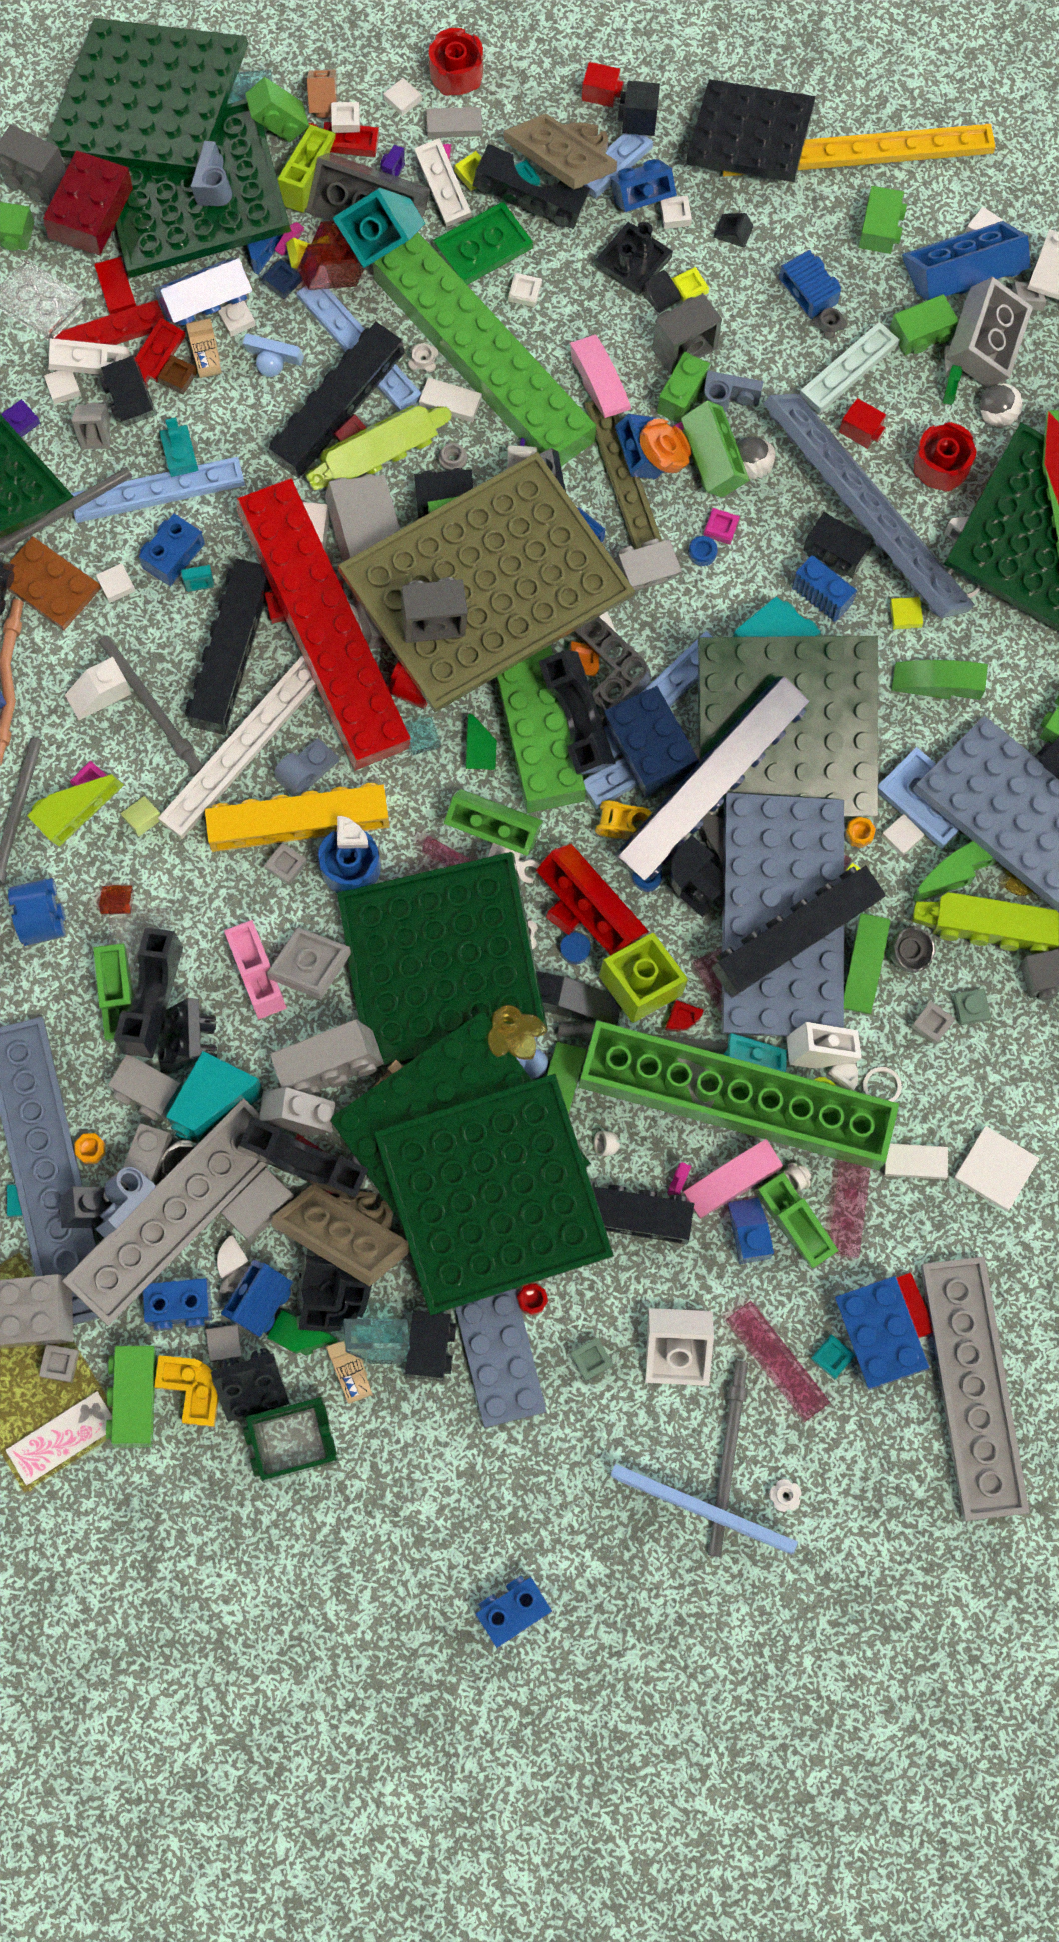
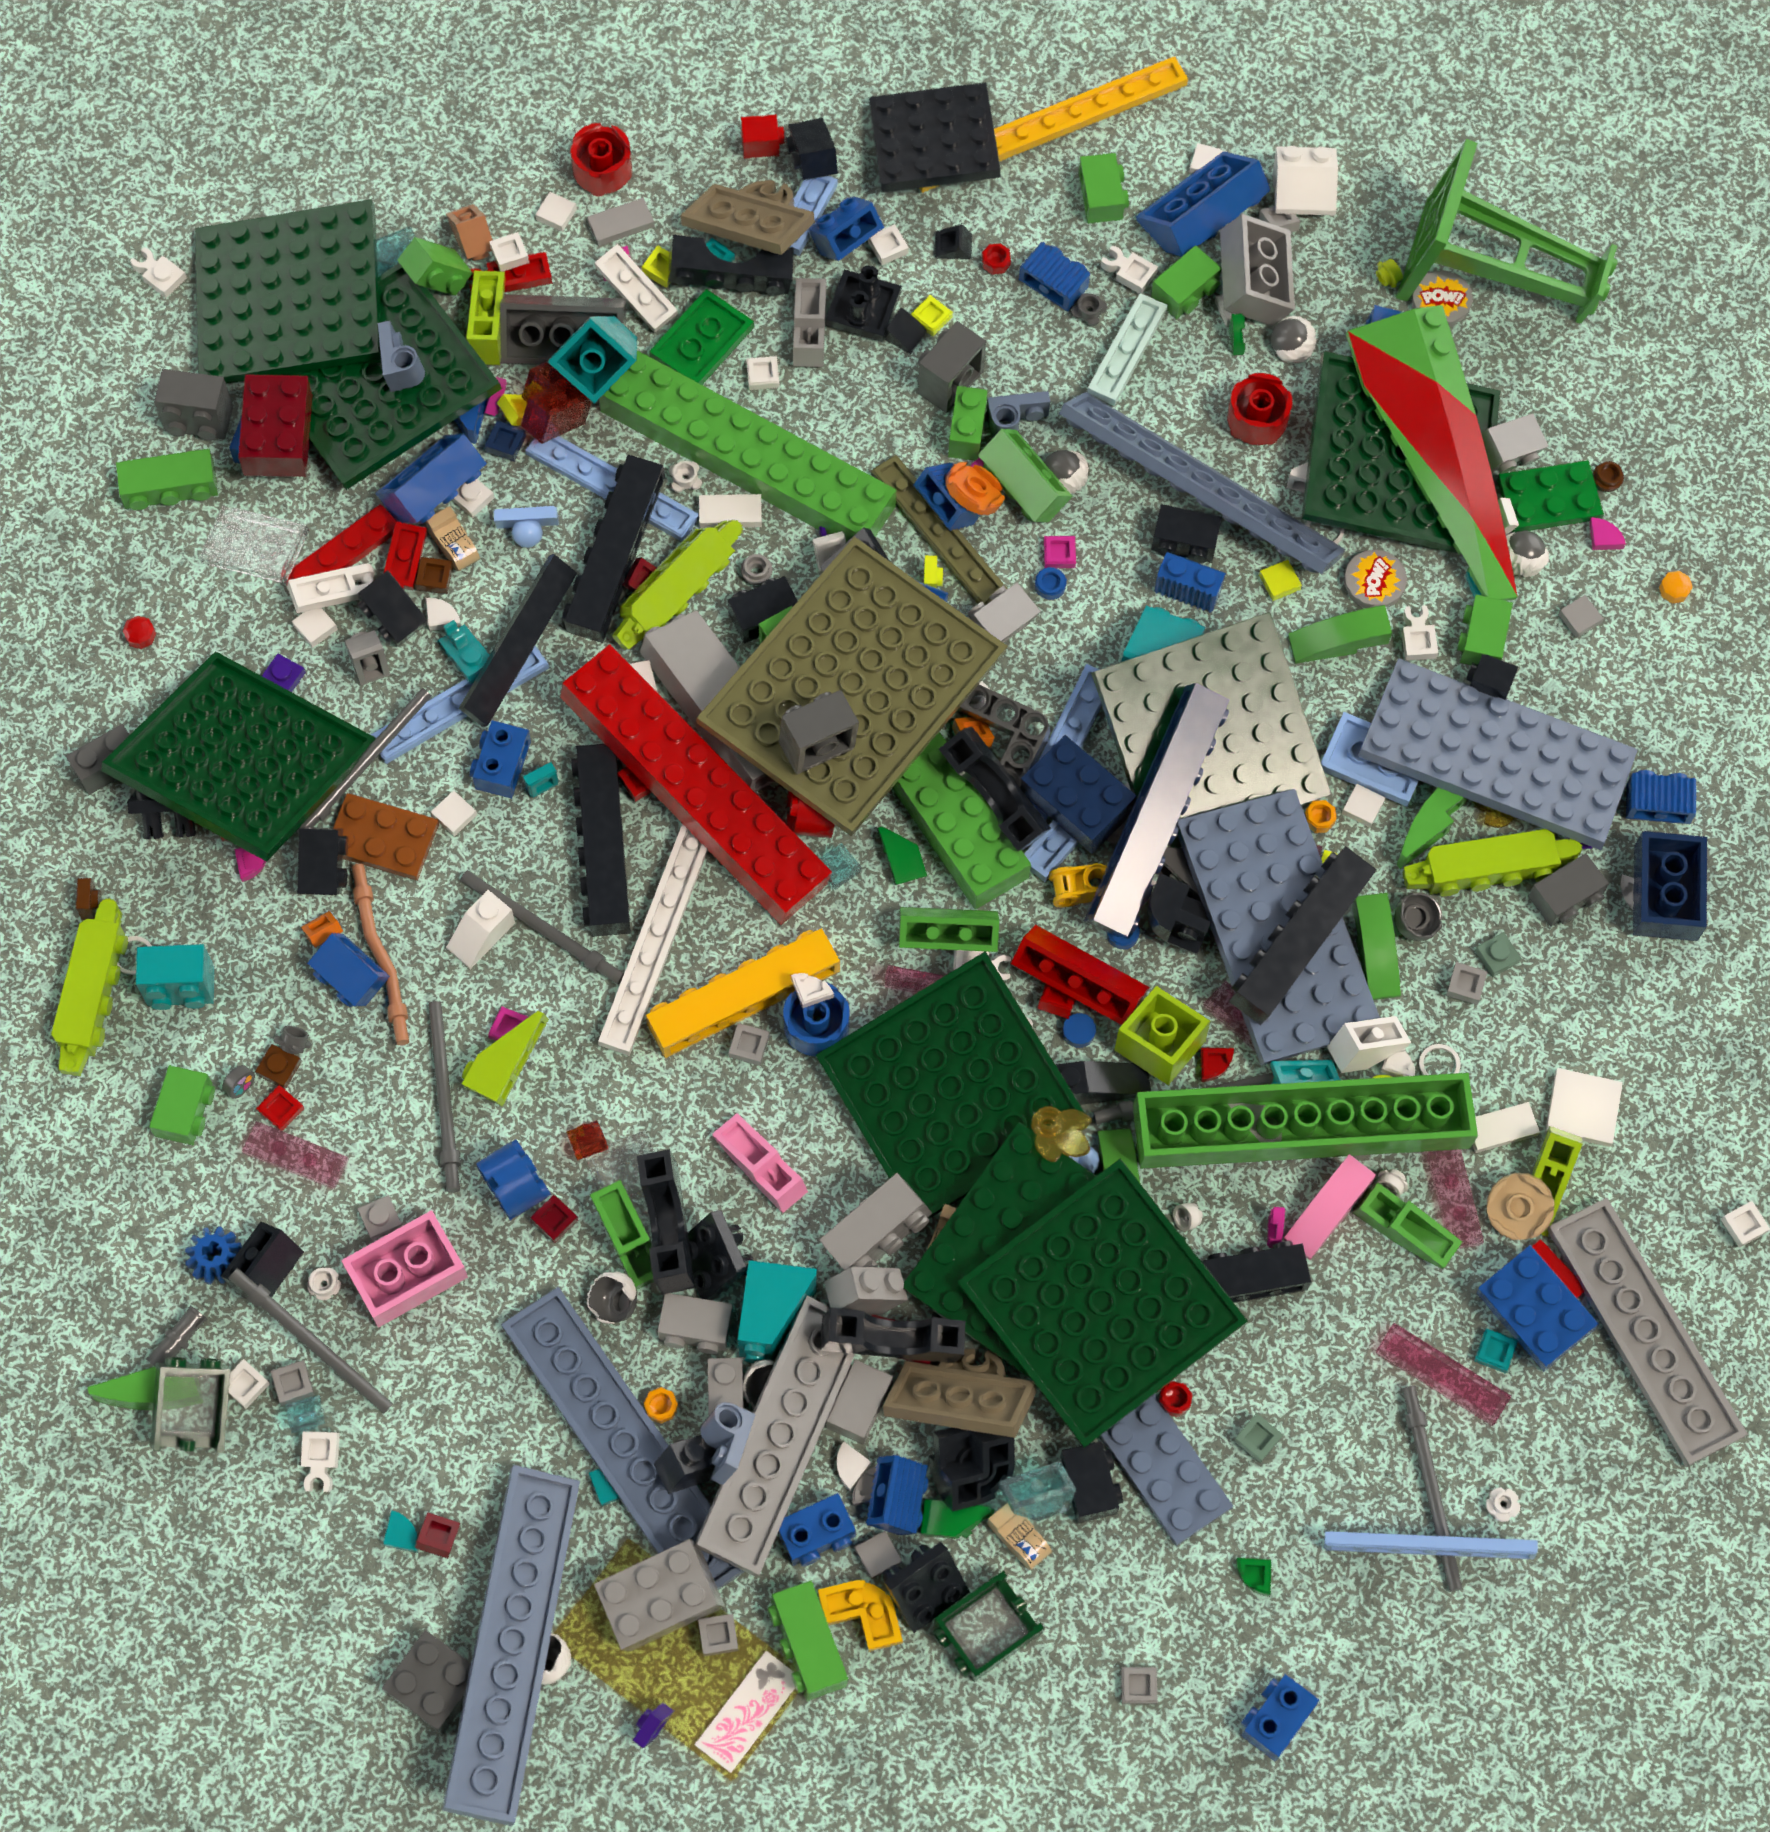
camera: 20 degrees left, 5 degrees down
(50, 48) = (159, 274): none -> white plate
(63, 957) = (554, 1218): none -> dark red plate
(84, 1042) = (612, 1297): none -> dark grey hair
(115, 285) = (329, 503): red tile -> none
(141, 816) = (577, 1045): yellowish green slope -> none
(170, 408) = (440, 614): none -> white tile
(223, 452) = (518, 640): none -> black tile
(300, 772) = (728, 941): sand blue plate -> none
(309, 963) = (816, 1136): light grey tile -> none
(394, 161) = (575, 283): dark purple plate -> none
(403, 1538) = (1139, 1685): none -> light grey tile
(543, 1478) = (1255, 1574): none -> green tile
(580, 258) = (809, 322): none -> light grey slope
(599, 376) = (877, 438): bright pink slope -> none
(601, 509) = (932, 574): none -> neon yellow plate
(679, 1346) = (1341, 1393): white slope -> none
(750, 1231) = (1367, 1253): blue slope -> none
(765, 253) = (996, 258): none -> red tile
(863, 423) = (1164, 402): red brick -> none
(880, 301) = (1131, 271): none -> white plate
(903, 1237) = (1520, 1206): none -> tan tile
(938, 1223) = (1556, 1163): none -> lime slope
(991, 639) = (1375, 579): none -> tile
(1009, 704) = (1417, 638): none -> white plate

